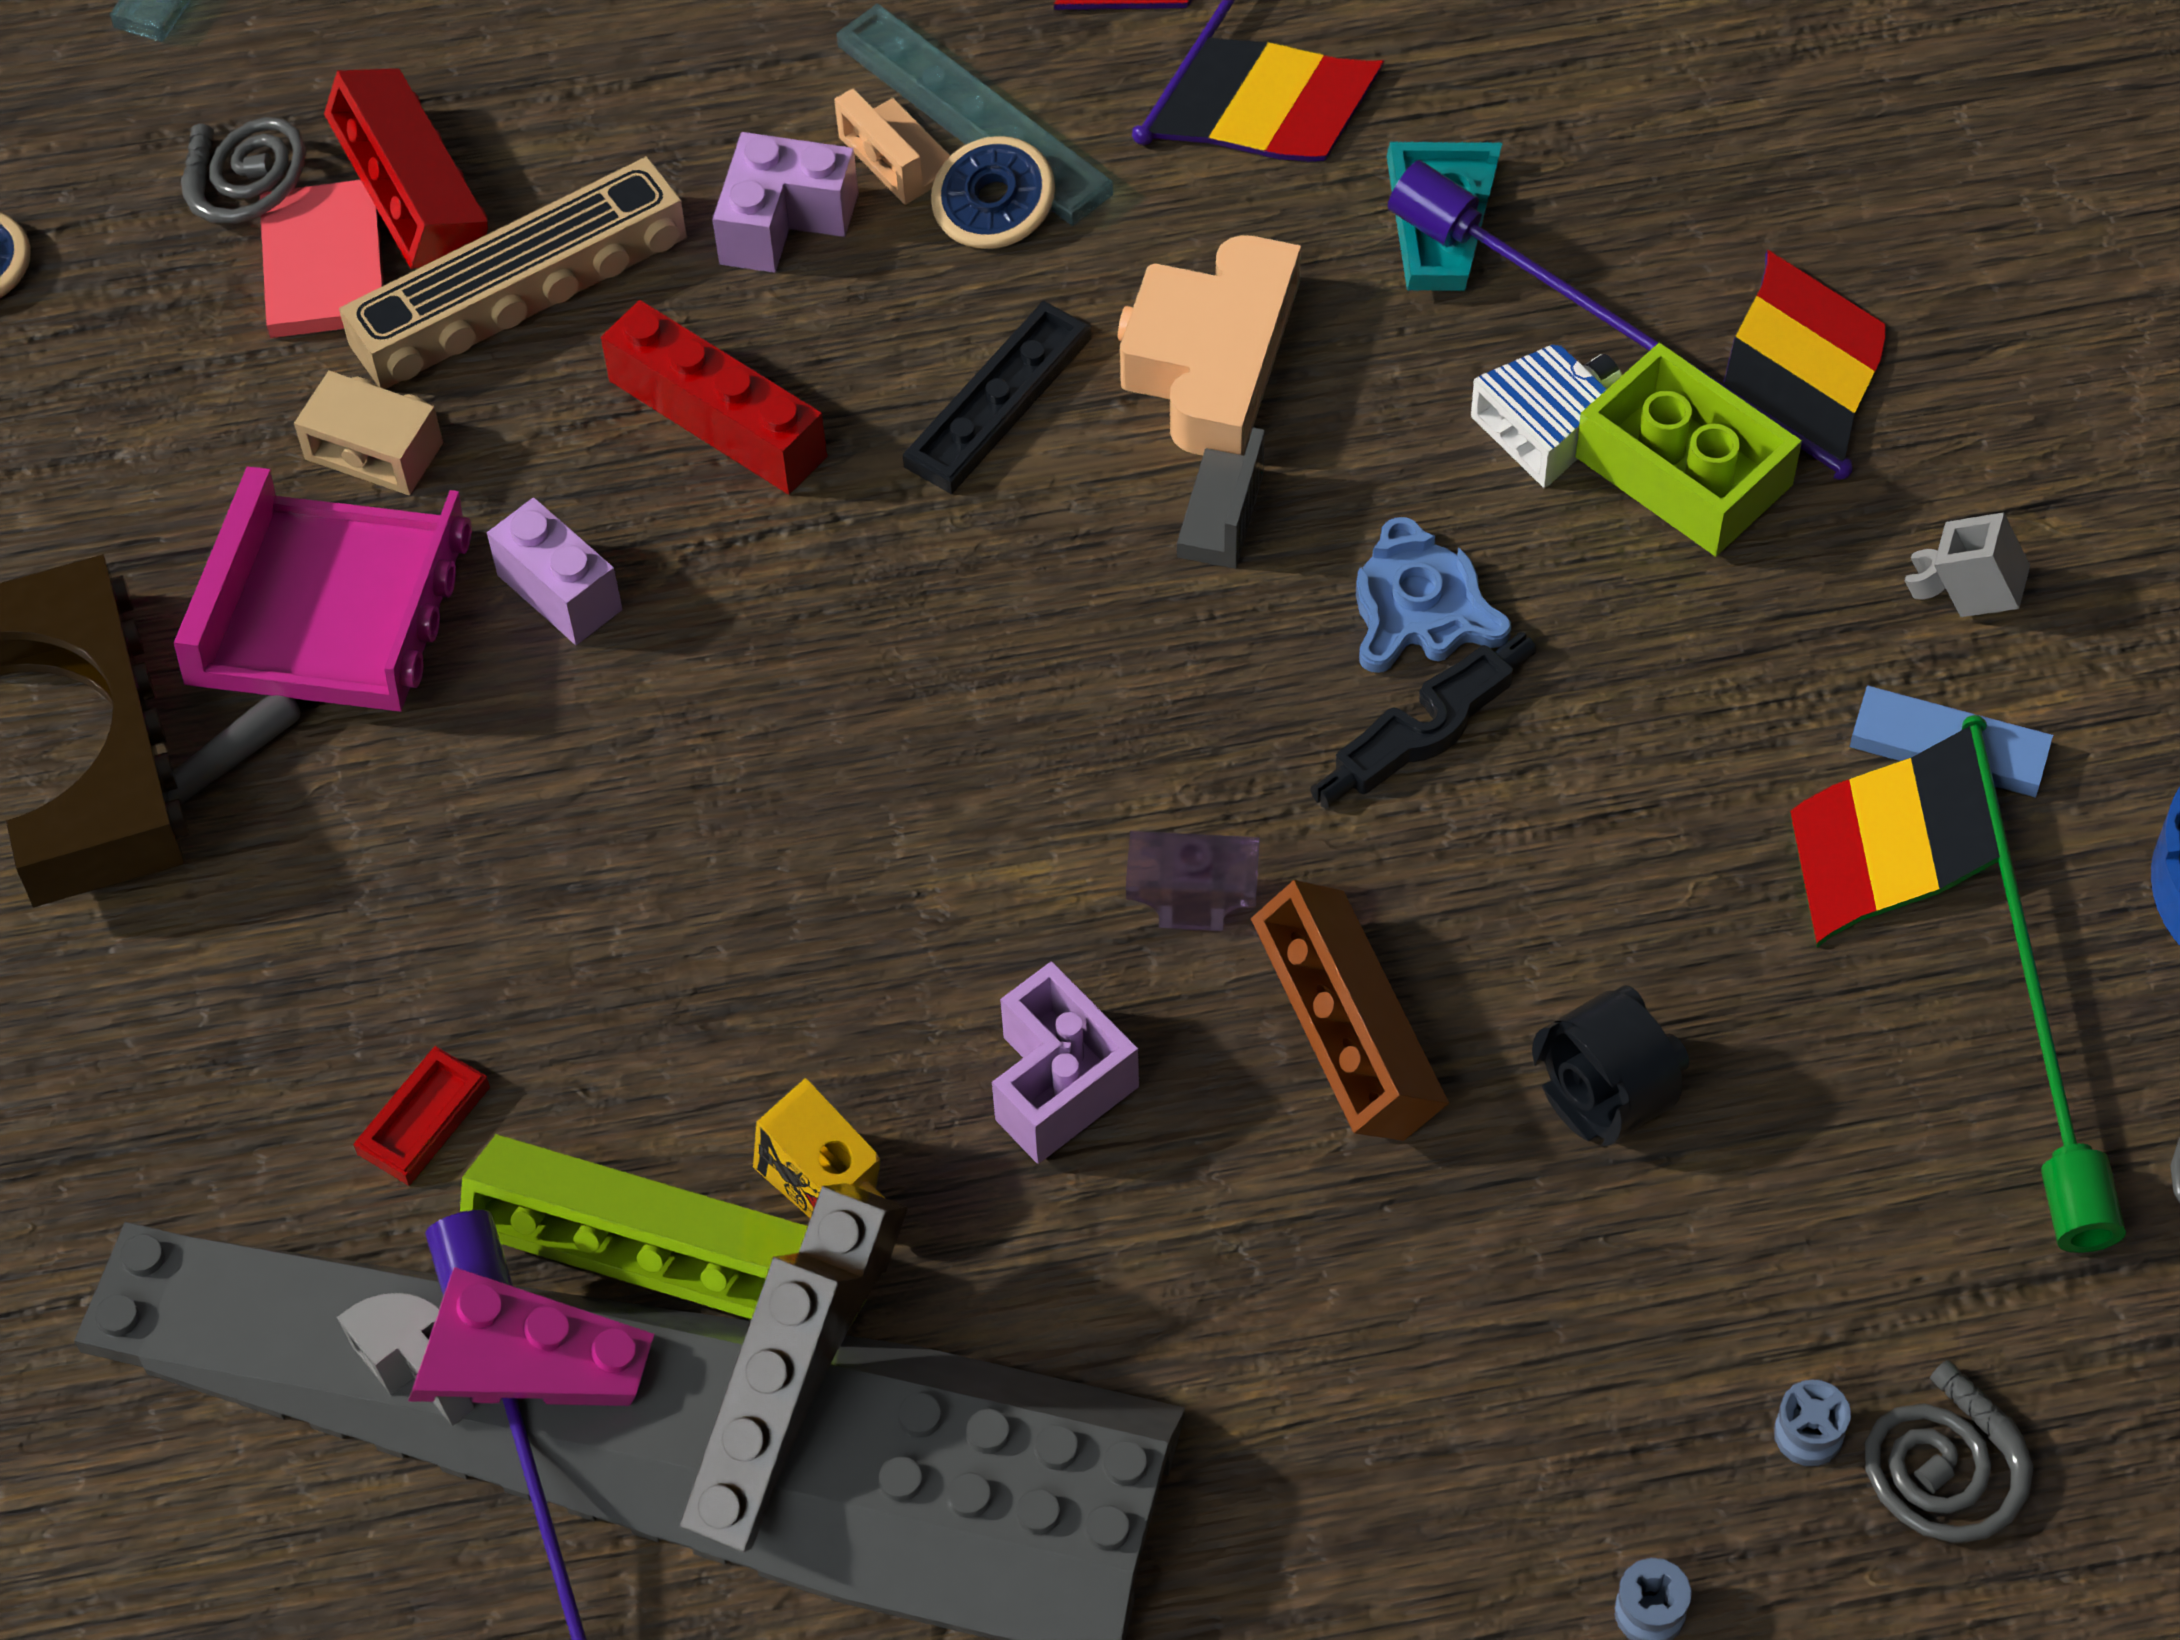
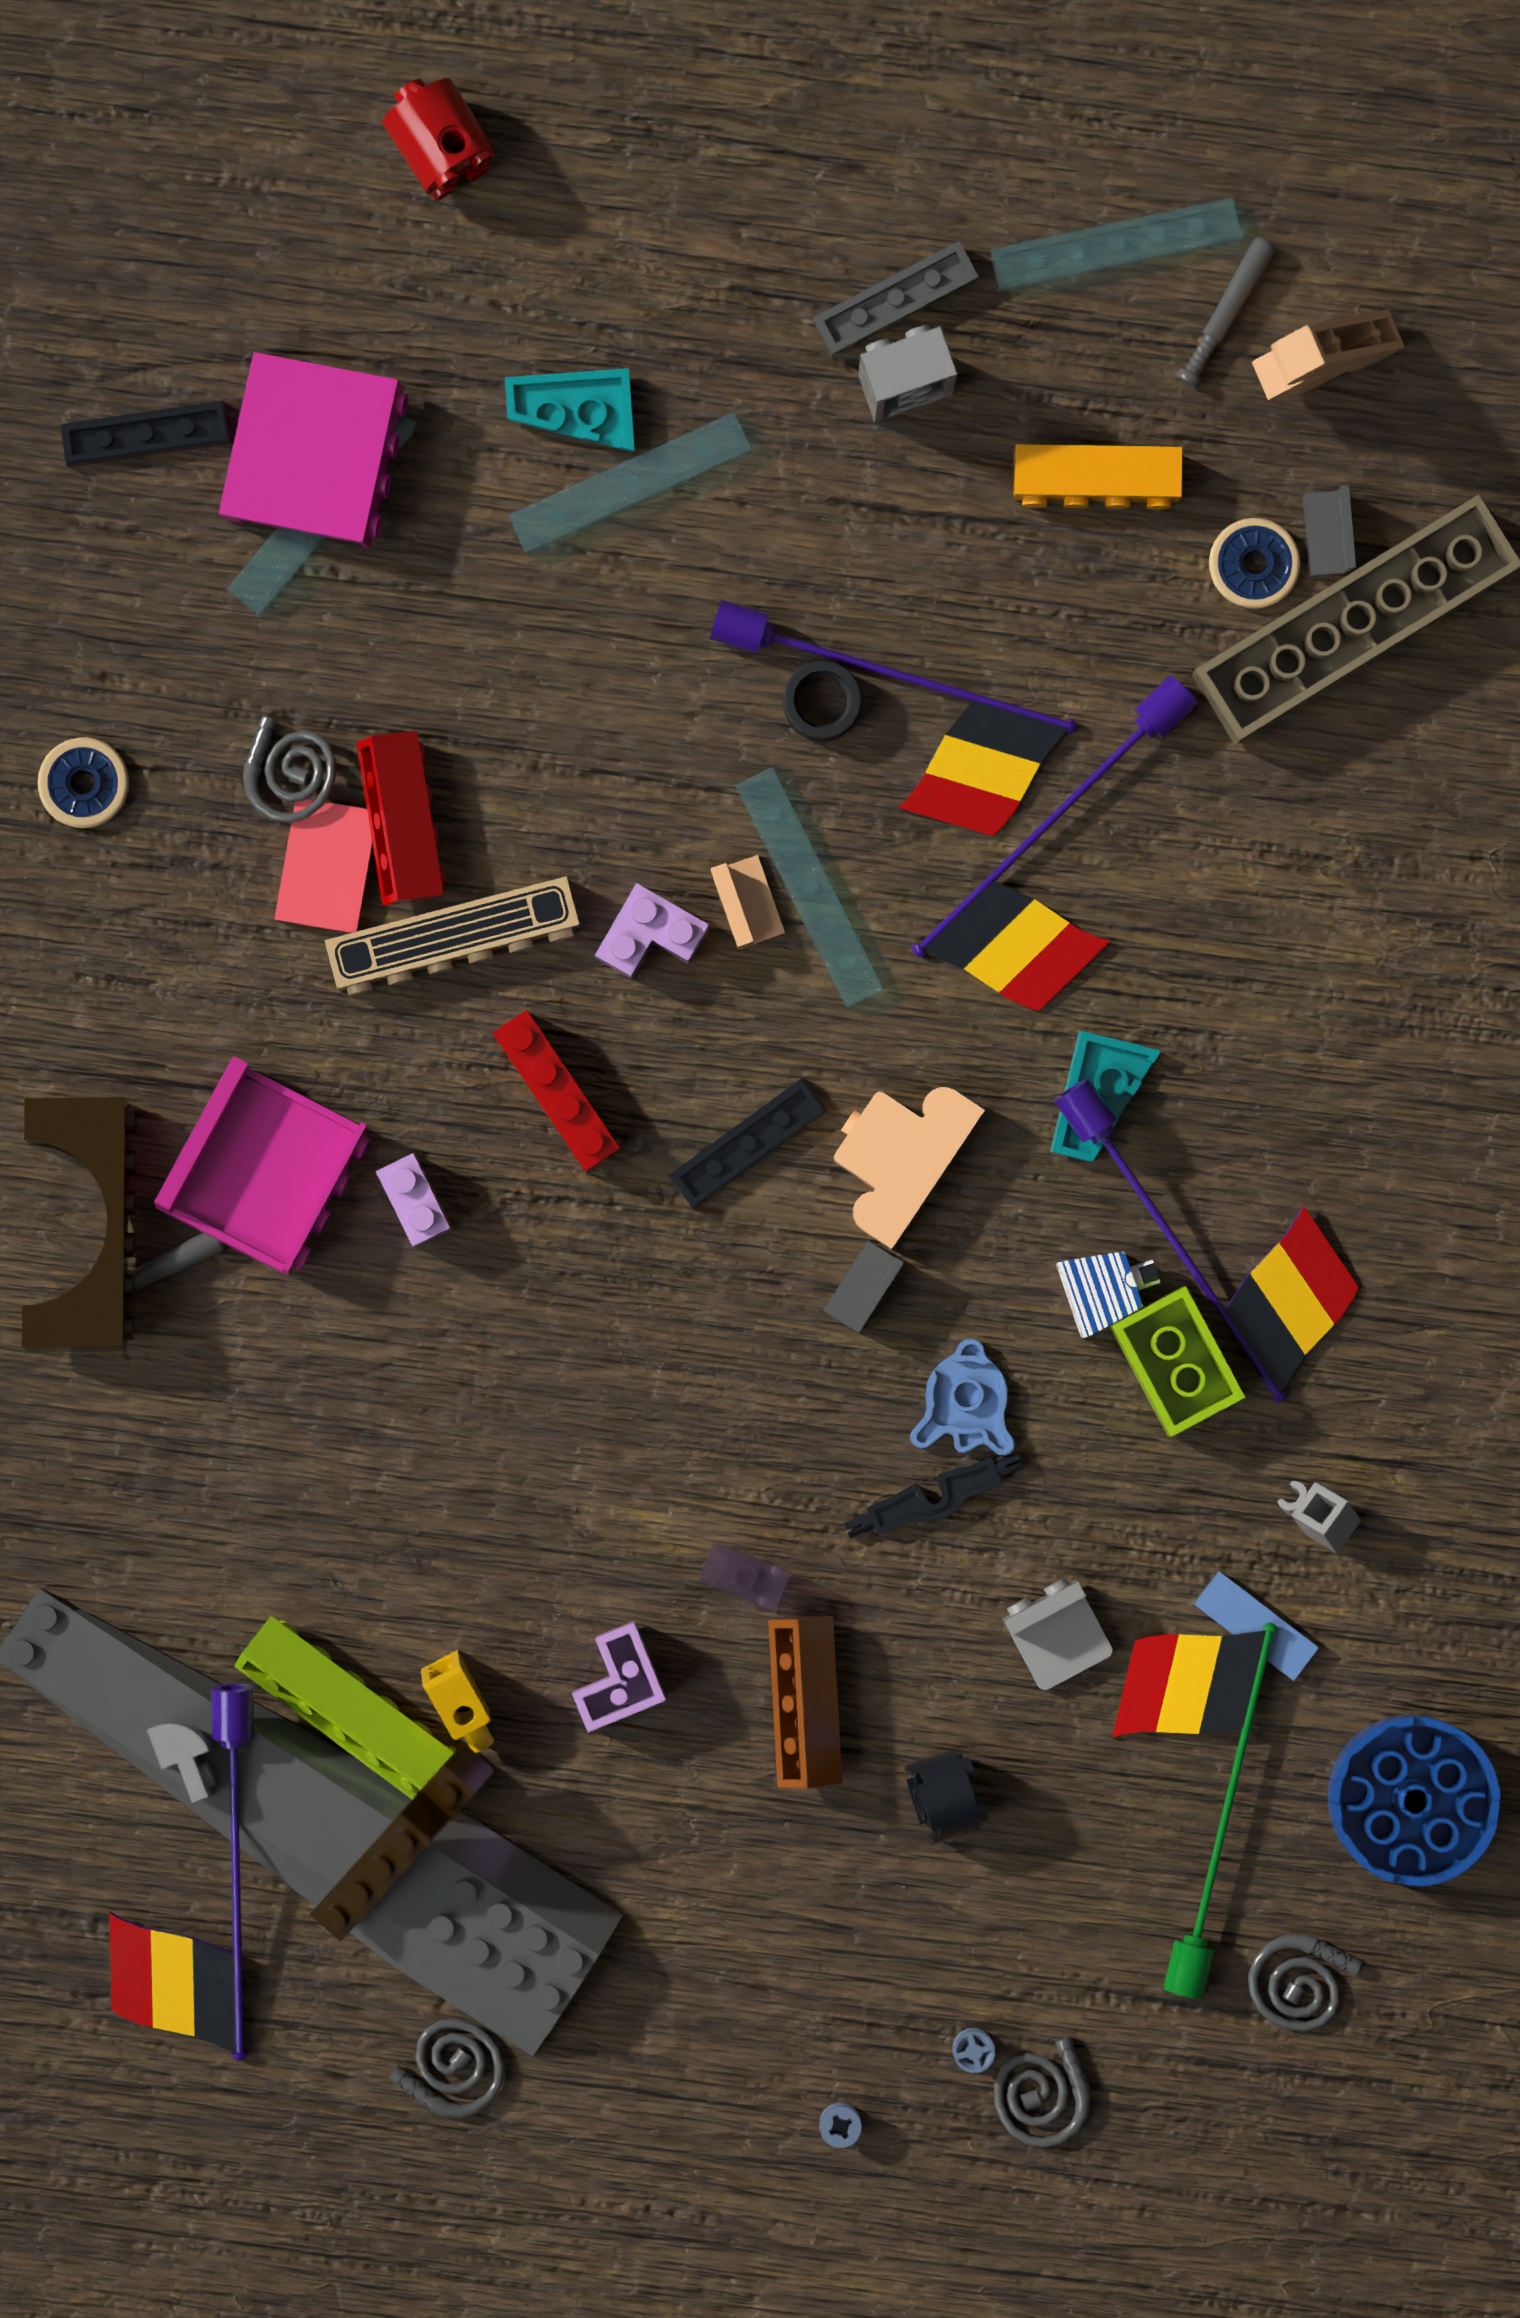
camera: 15 degrees right, 30 degrees up
(369, 432) = (322, 1039): tan brick -> none
(421, 1115) = (232, 1569): red tile -> none
(518, 1344) = (248, 1788): dark pink wing -> none
(997, 223) = (824, 967): dark blue wheel -> none
(1671, 821) = (1057, 1633): none -> light grey bracket

